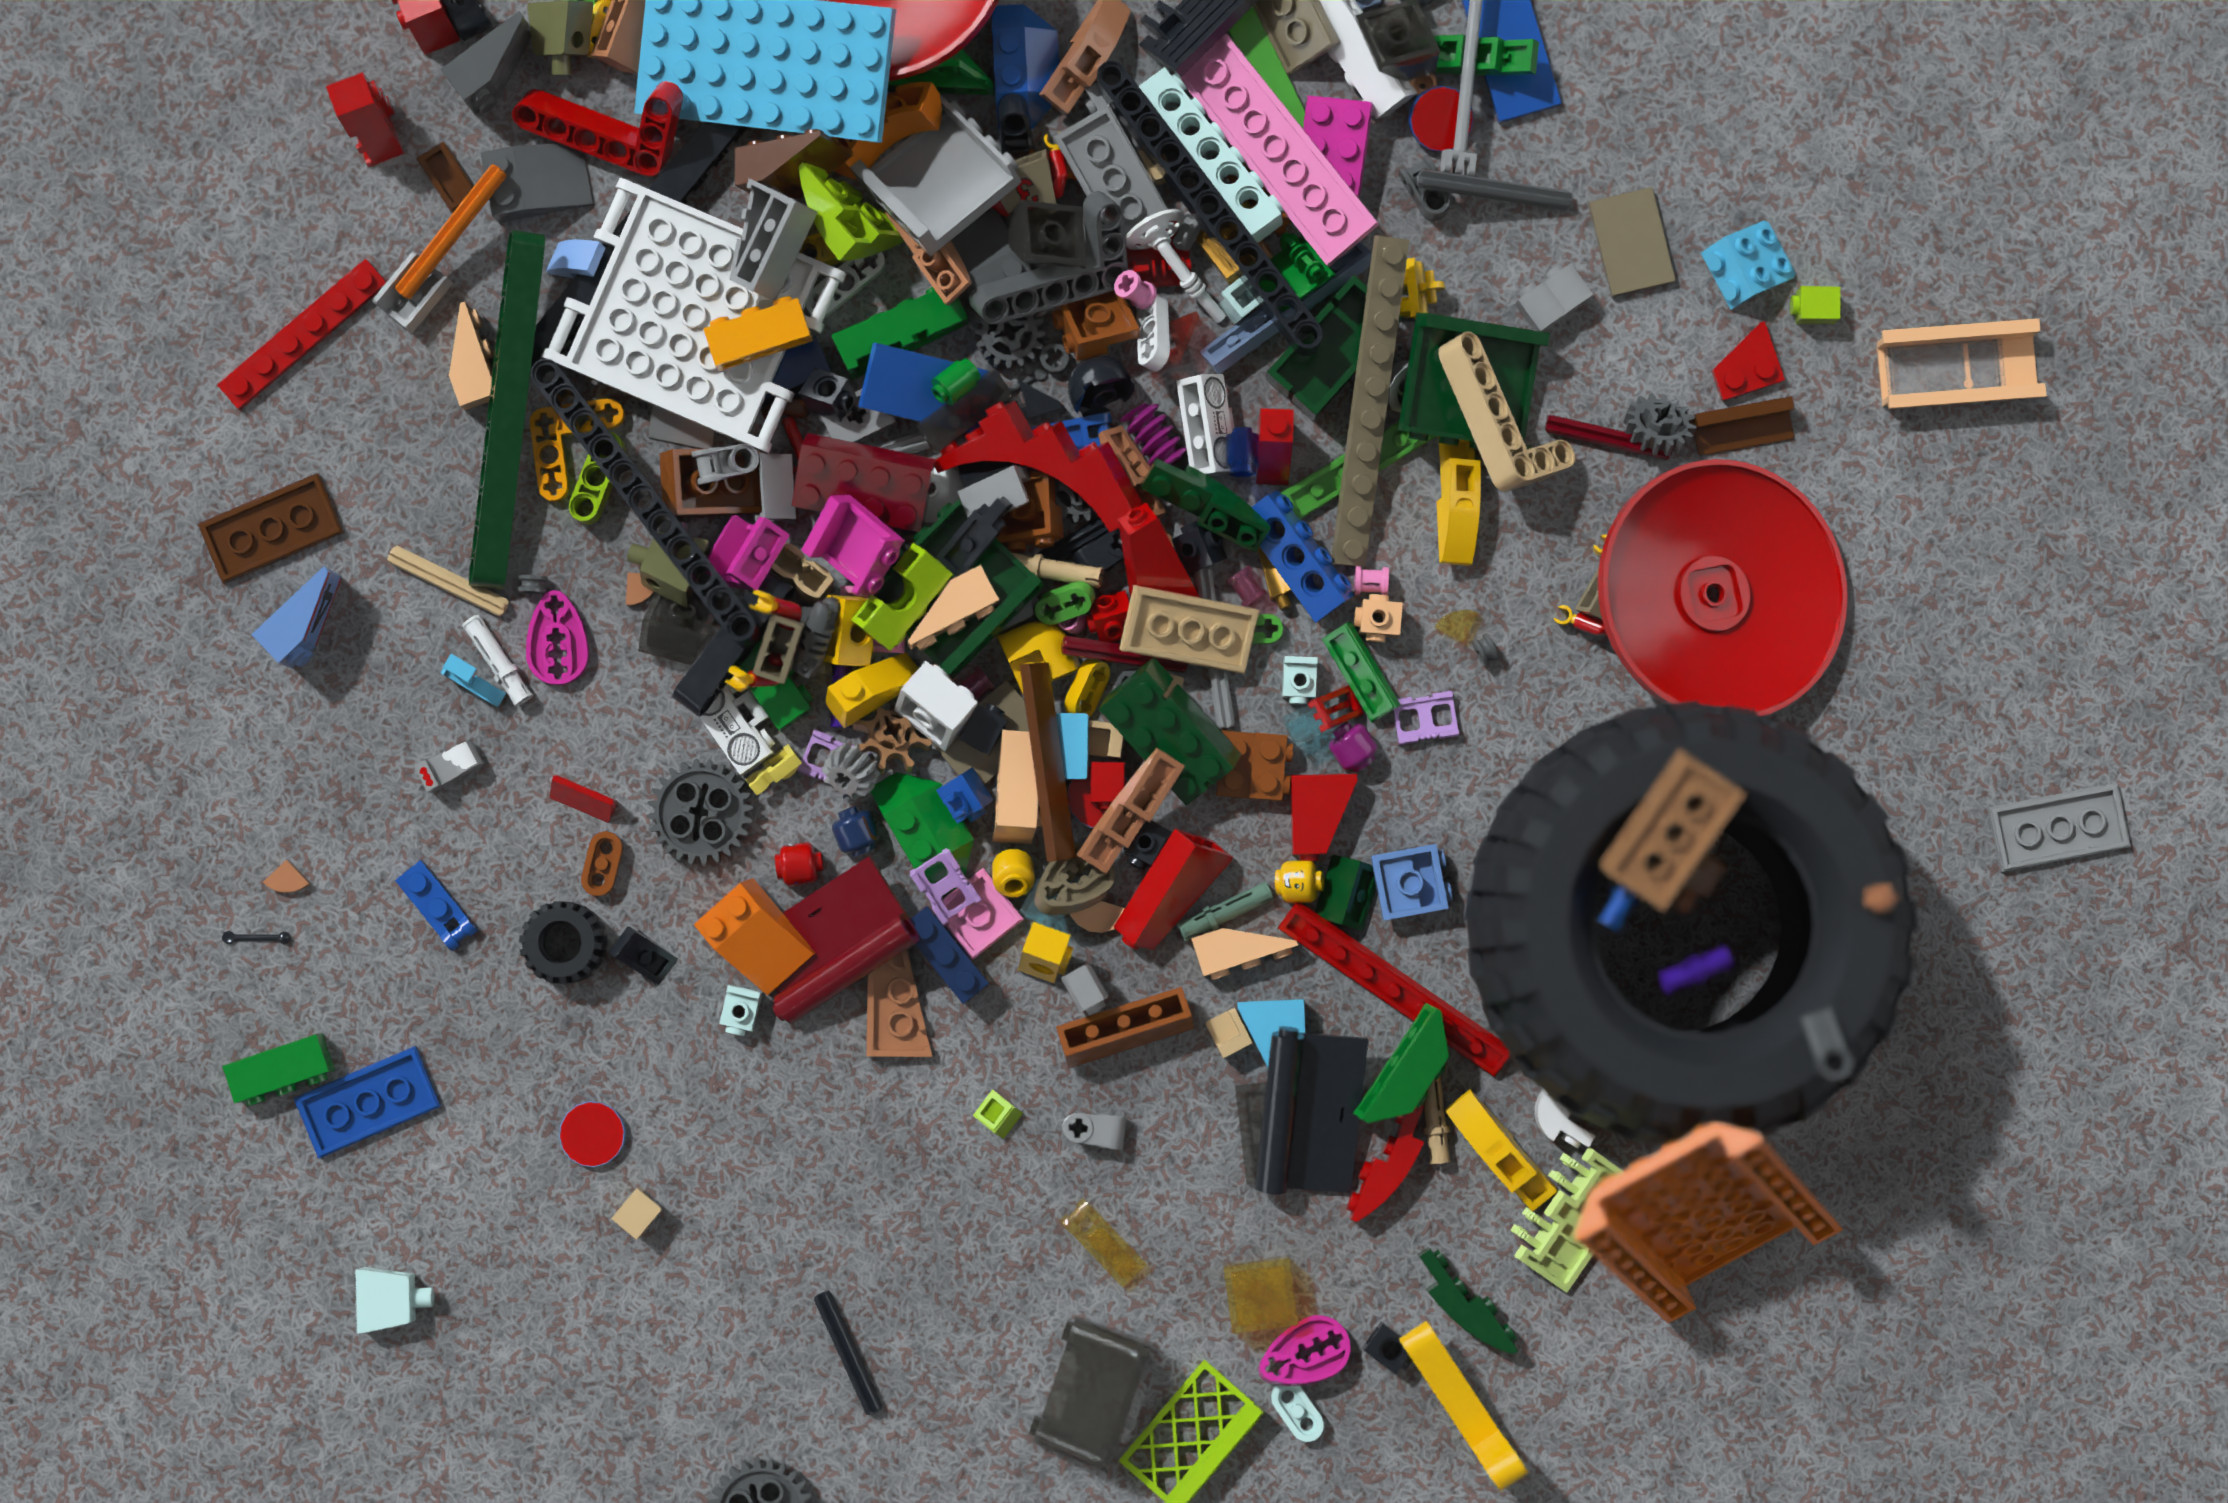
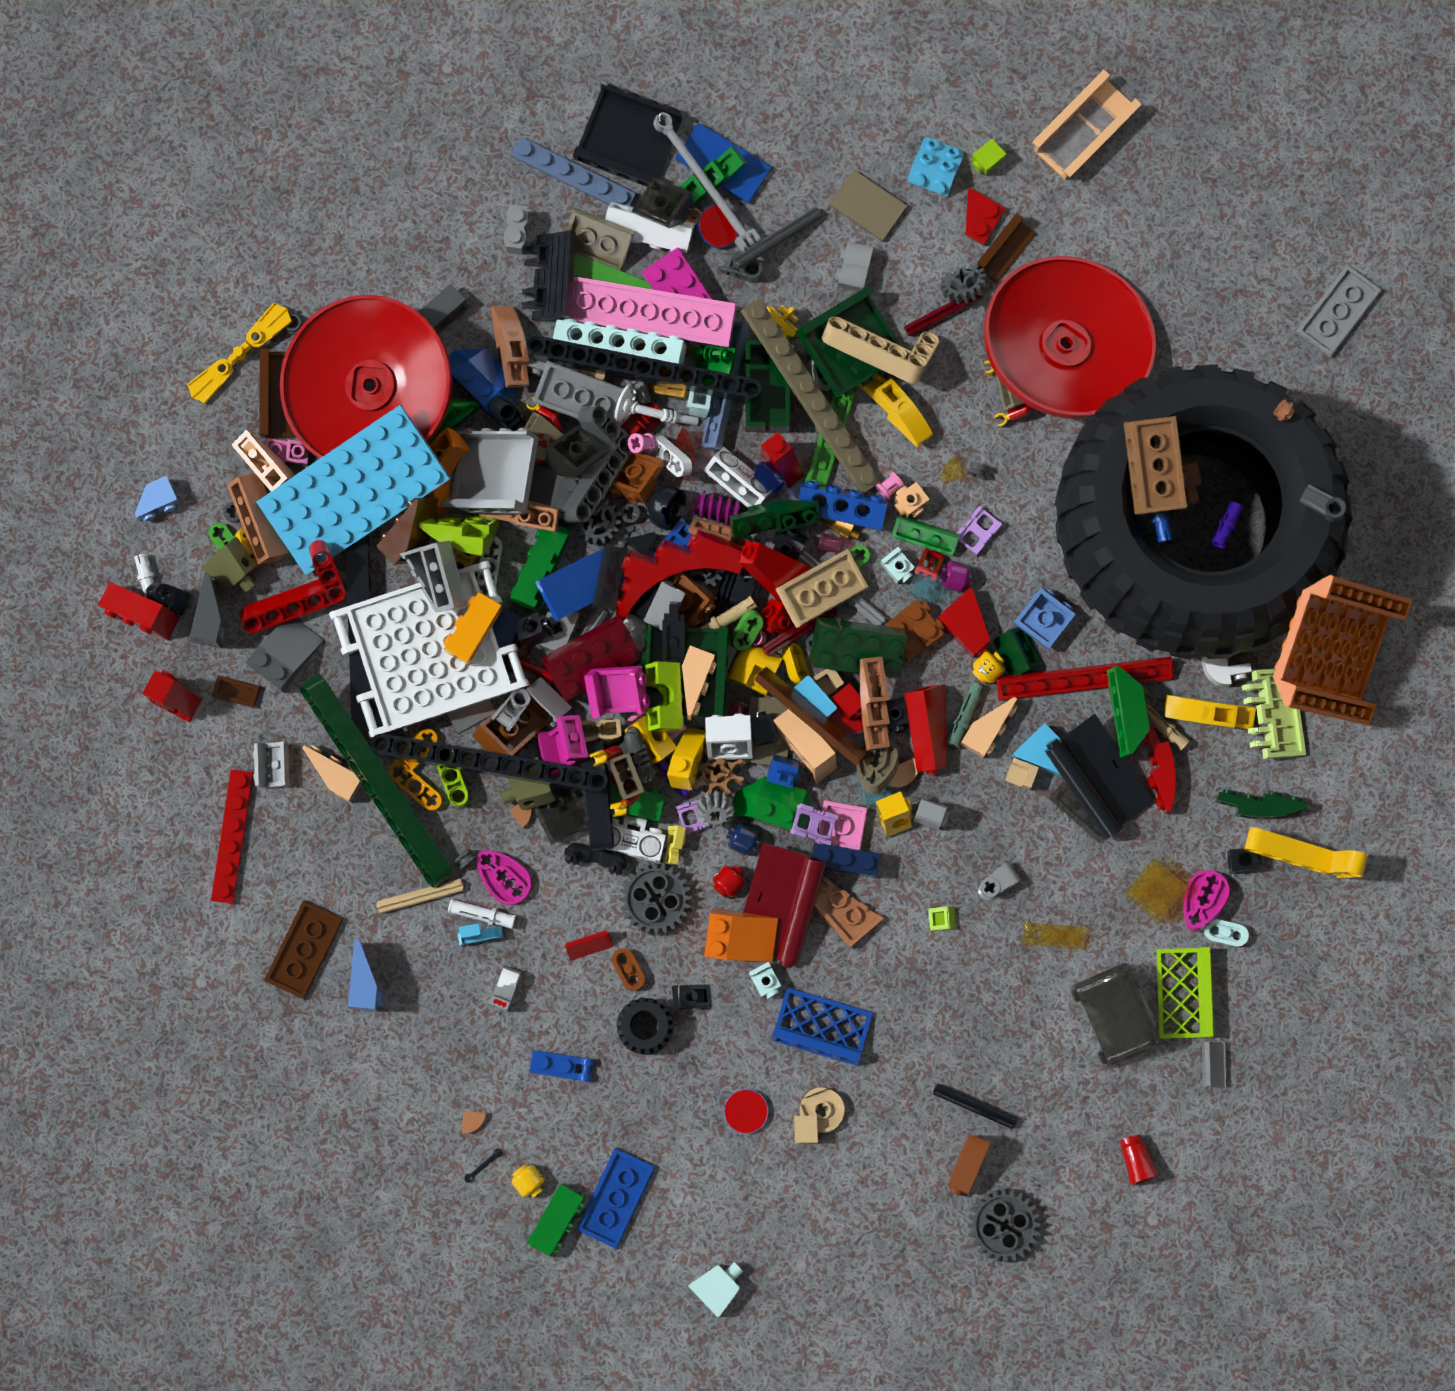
camera: 45 degrees left, 5 degrees down
(288, 998) = (528, 1181): none -> yellow head
(451, 231) = (266, 715): orange axle -> none
(575, 258) = (341, 673): light blue slope -> none
(692, 728) = (579, 852): none -> black piece
(693, 1198) = (827, 1098): none -> tan plate
(732, 1127) = (811, 1042): none -> blue fence
(780, 1411) = (967, 1165): none -> dark orange slope
(955, 381) = (593, 566): green brick -> none
(1013, 873) = (842, 789): yellow head -> none
(1125, 1027) = (968, 816): dark orange brick -> none

